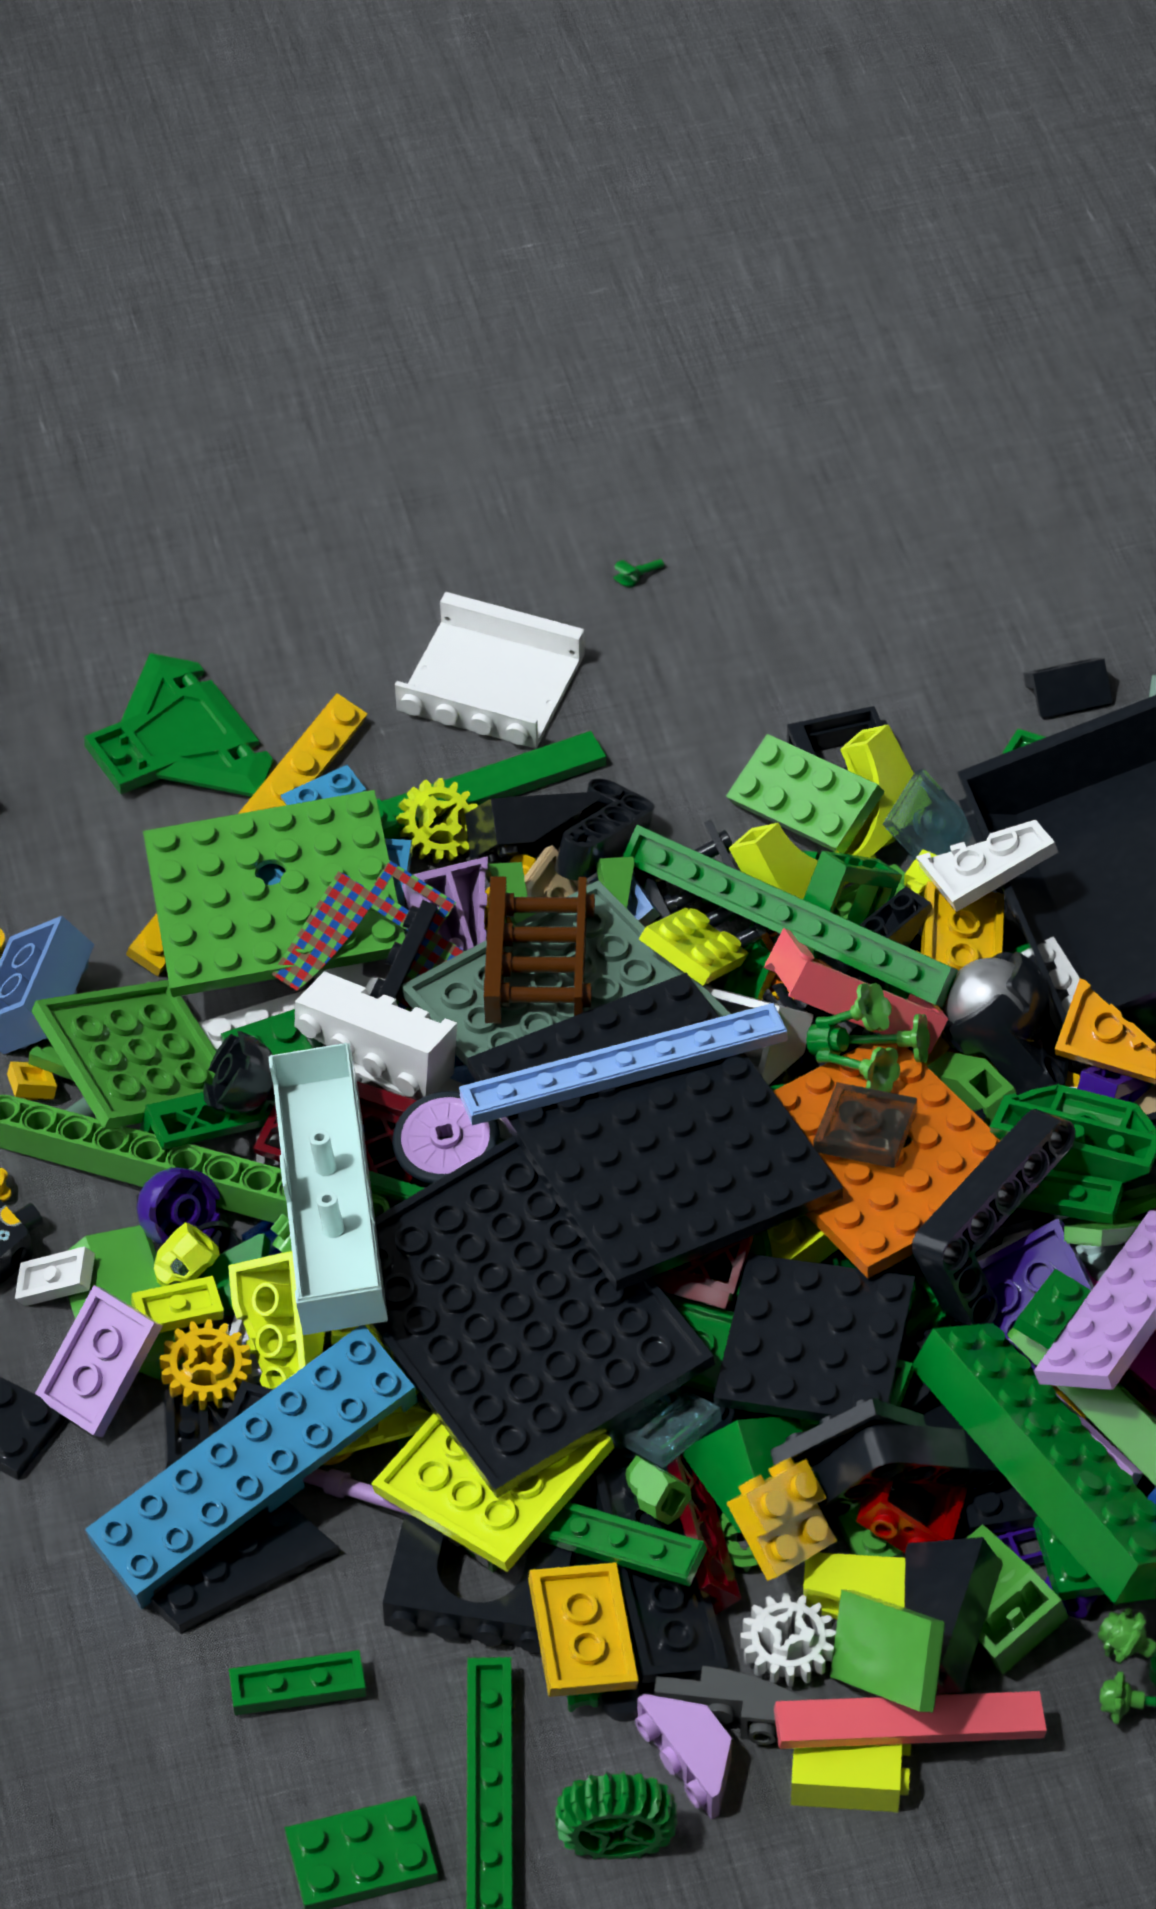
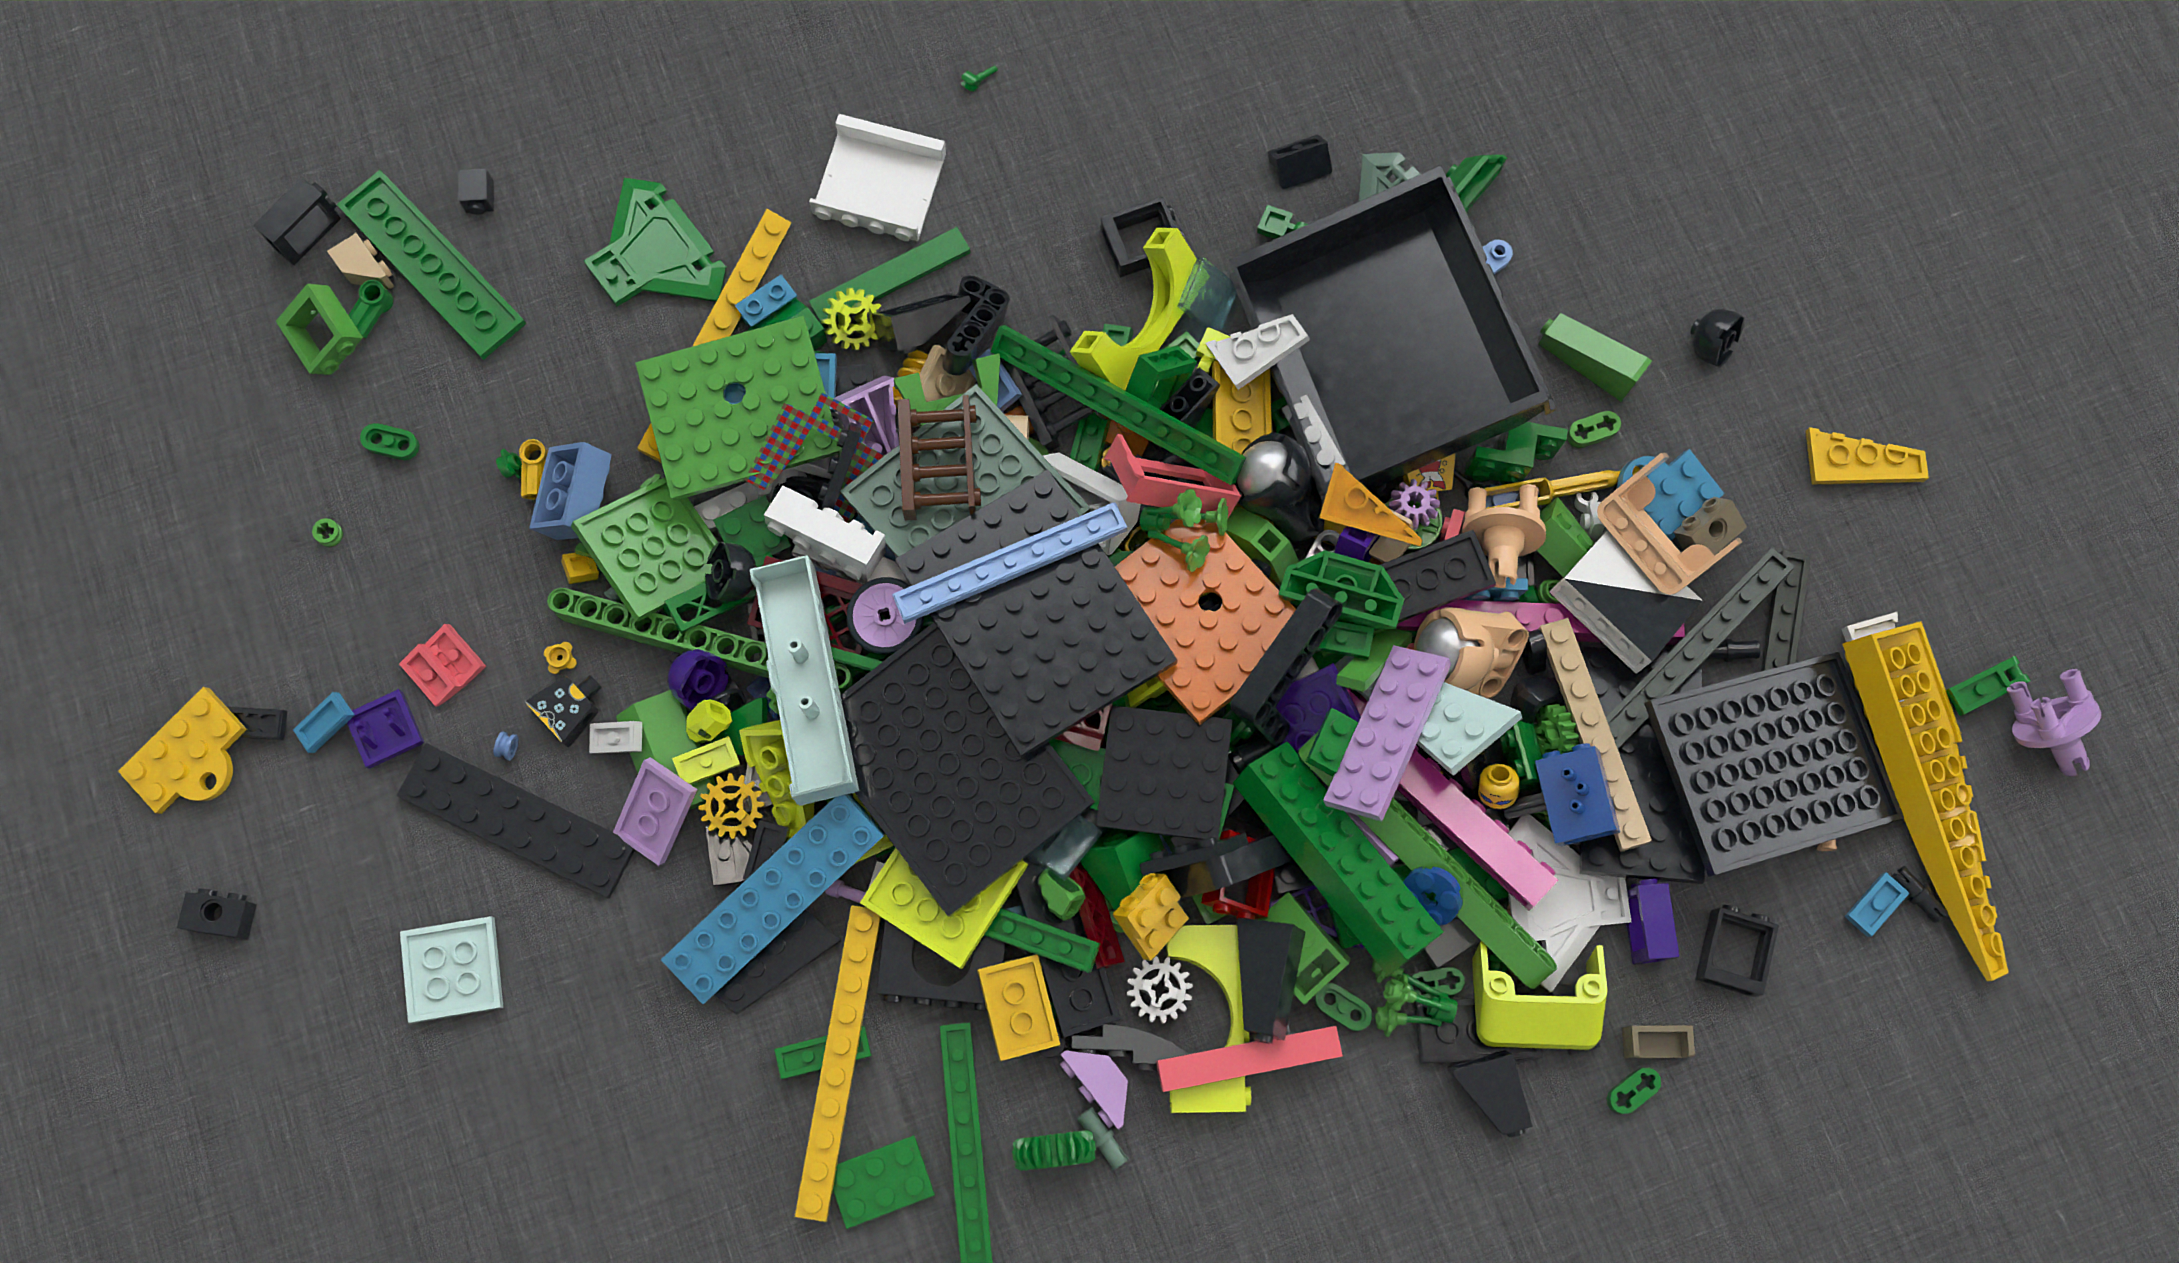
camera: 10 degrees left, 25 degrees up
(317, 1693) = (838, 1065): none -> yellow plate
(692, 1825) = (1103, 1138): none -> sand green pin
(694, 945) = (1050, 434): neon yellow plate -> none
(805, 794) = (1118, 280): bright green plate -> none
(865, 1125) = (1189, 600): clear smoke plate -> none
(887, 1650) = (1232, 1018): bright green tile -> none
(1056, 1683) = (1342, 1007): none -> green plate

